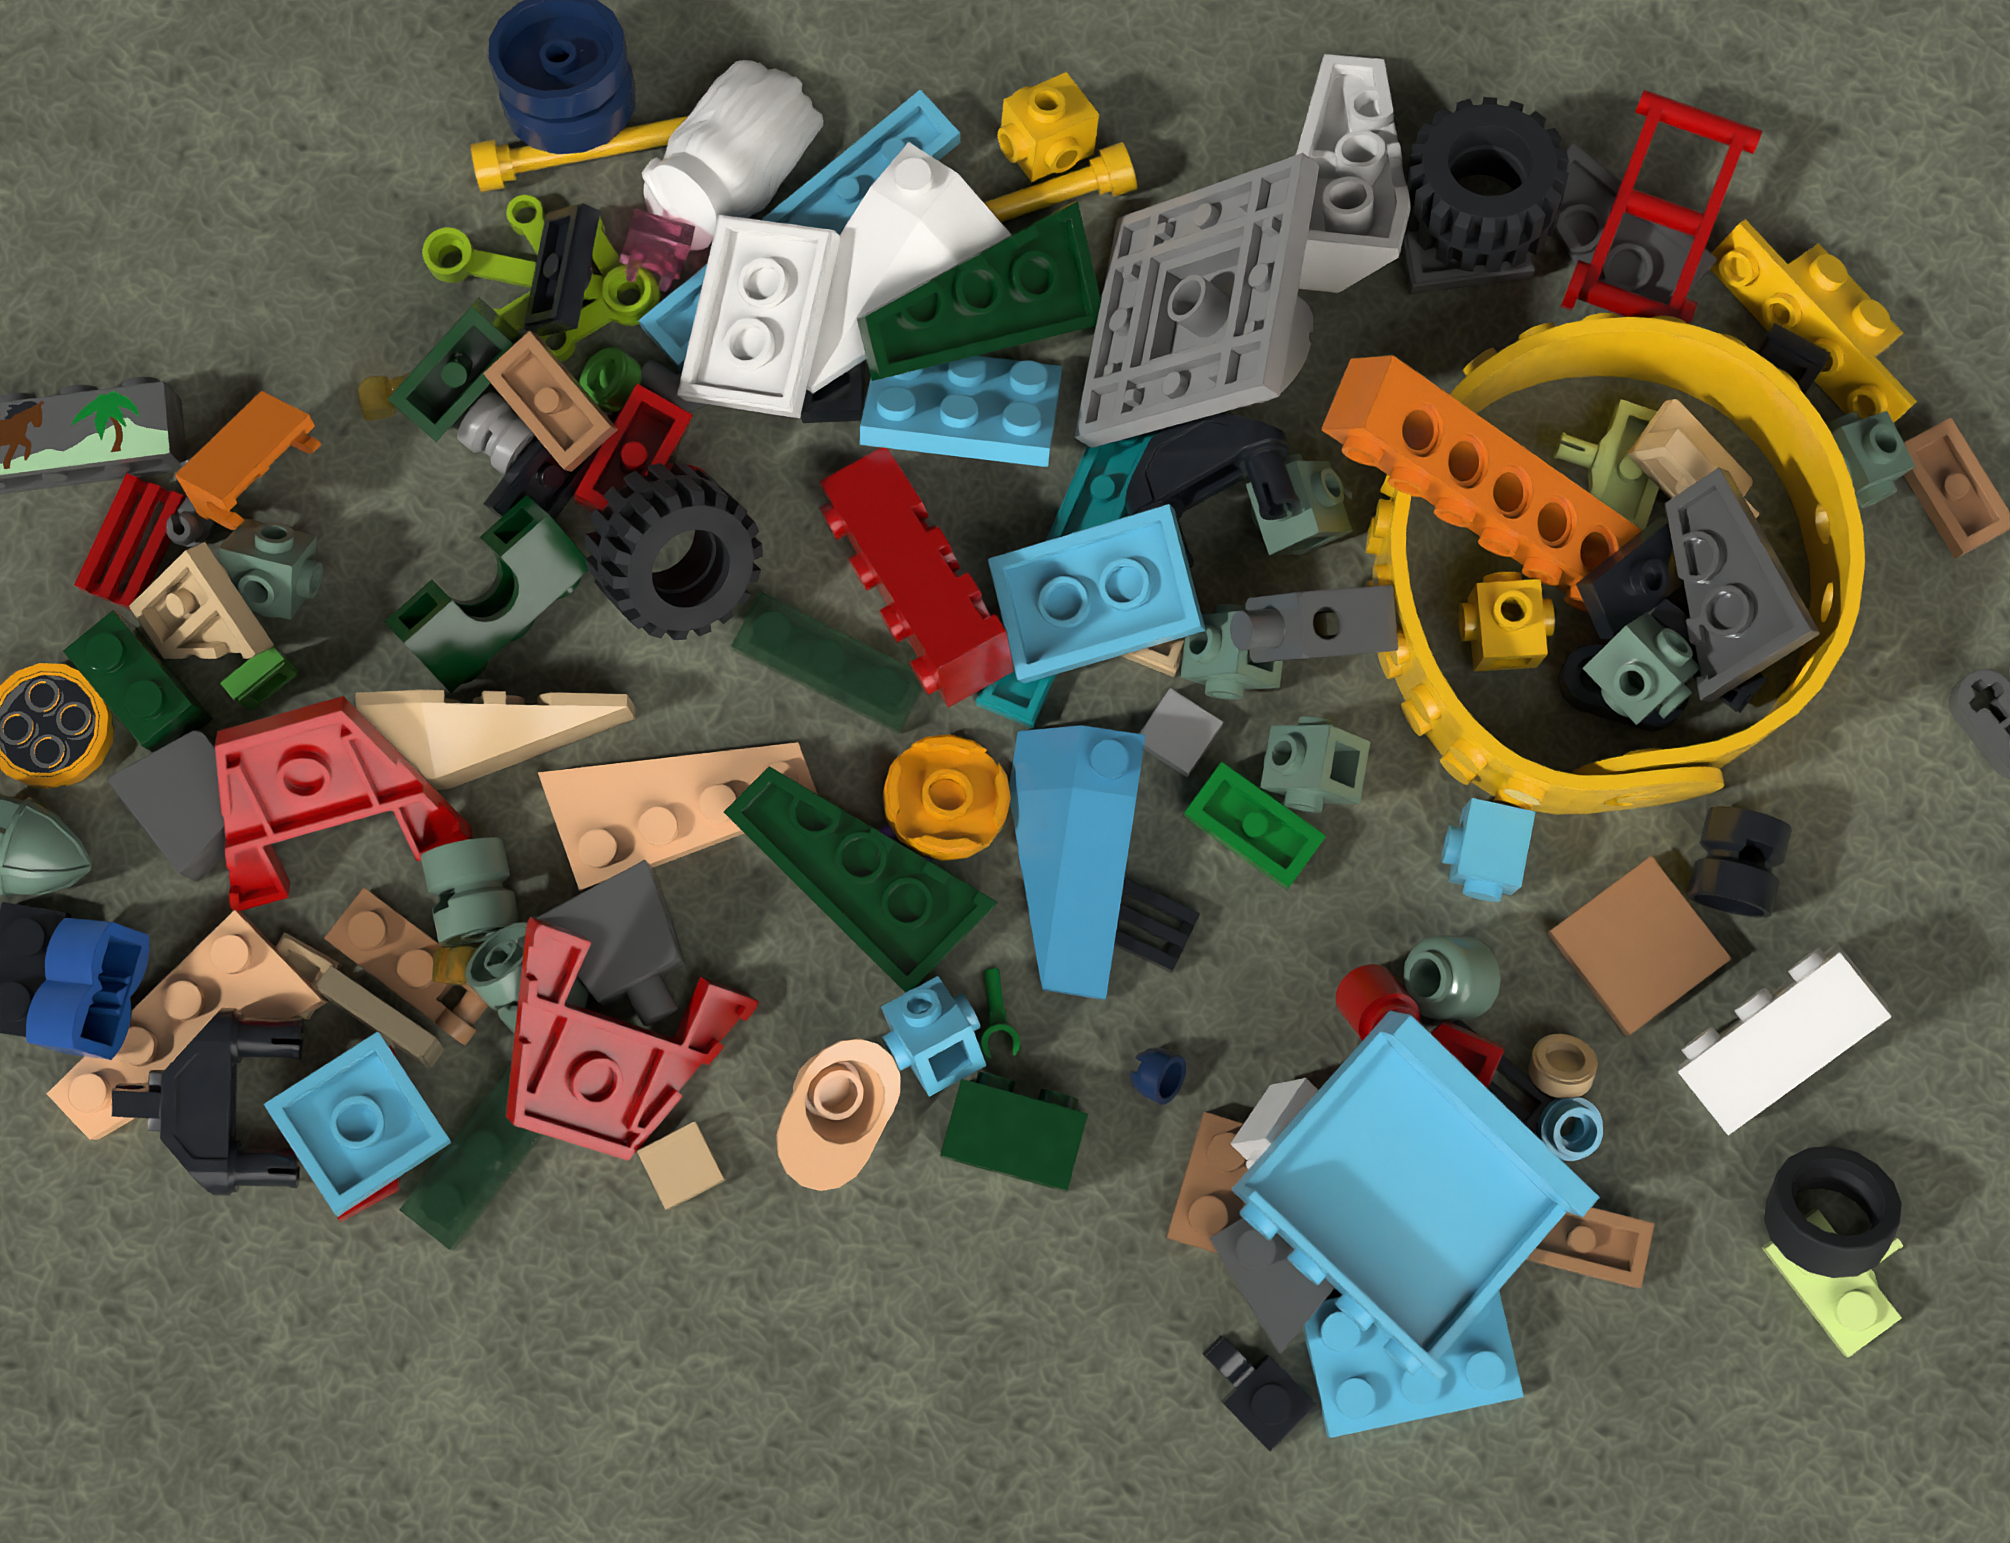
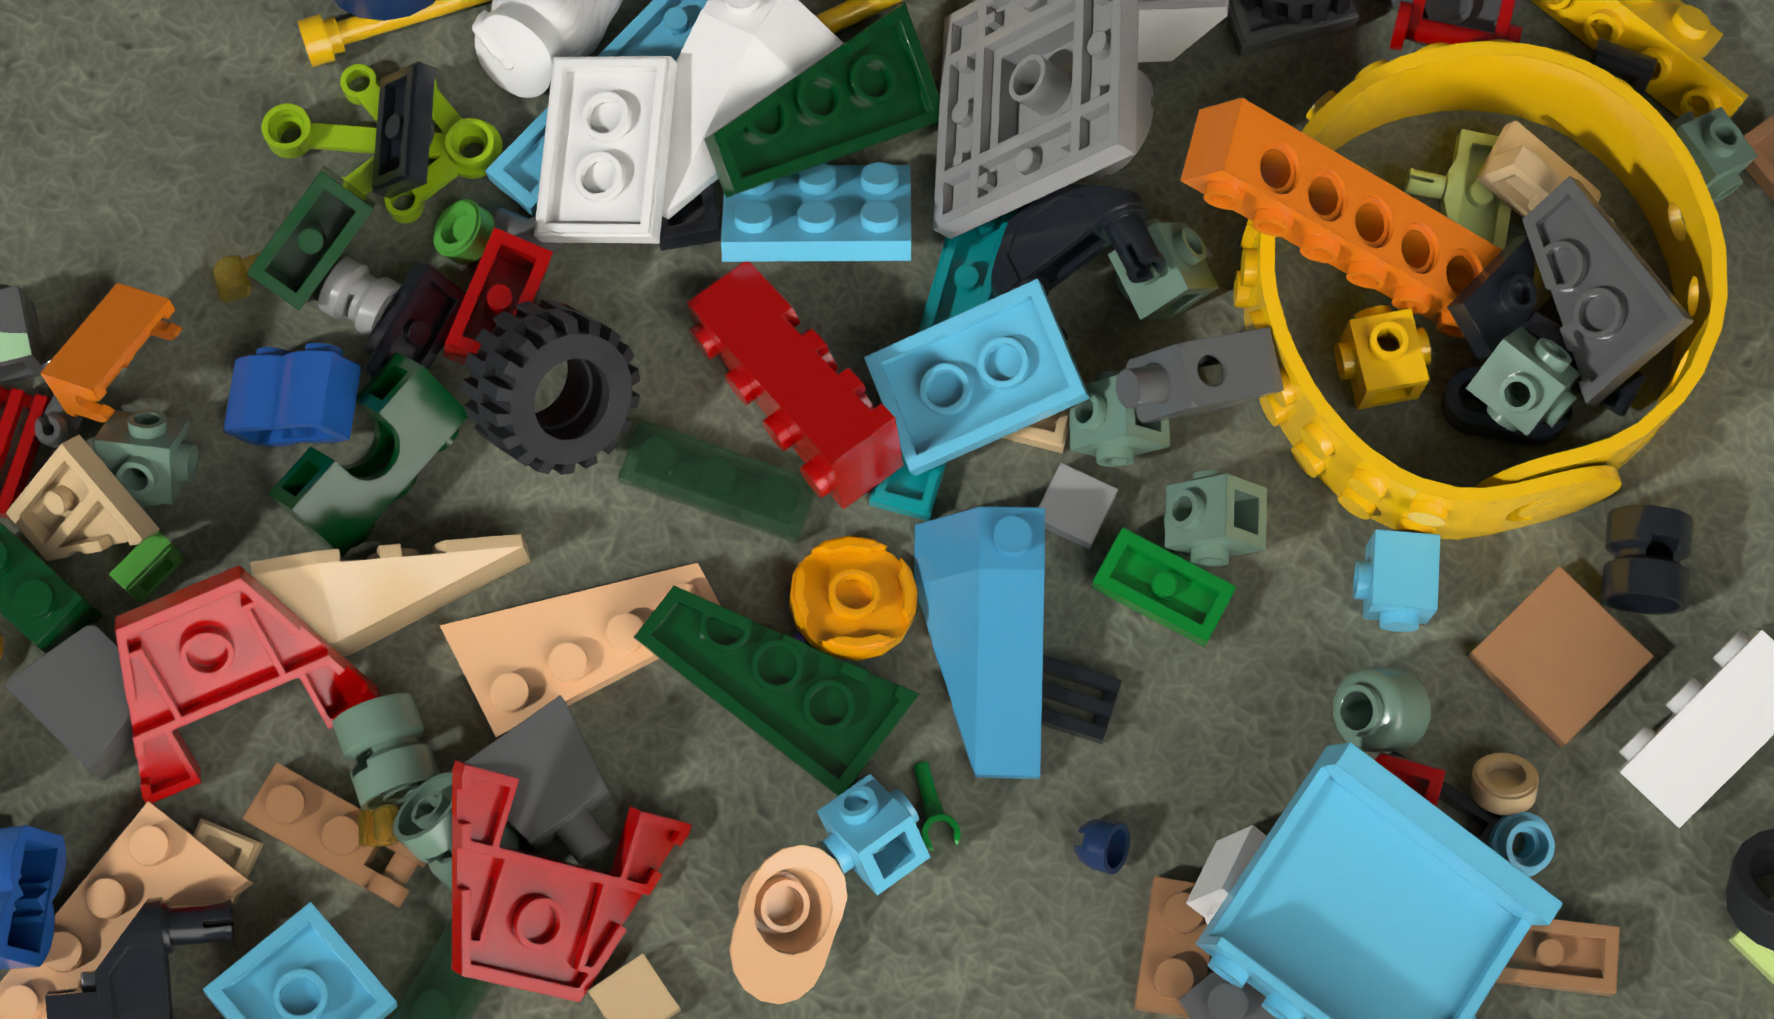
camera: 10 degrees left, 5 degrees down
(380, 1017) = (306, 886): dark tan tile -> none
(420, 526) = (292, 396): none -> blue brick
(550, 401) = (410, 254): medium nougat plate -> none
(657, 246) = (494, 96): clear pink tile -> none
(1015, 1132) = (968, 921): dark green brick -> none
(1369, 995) = (1302, 737): red brick -> none

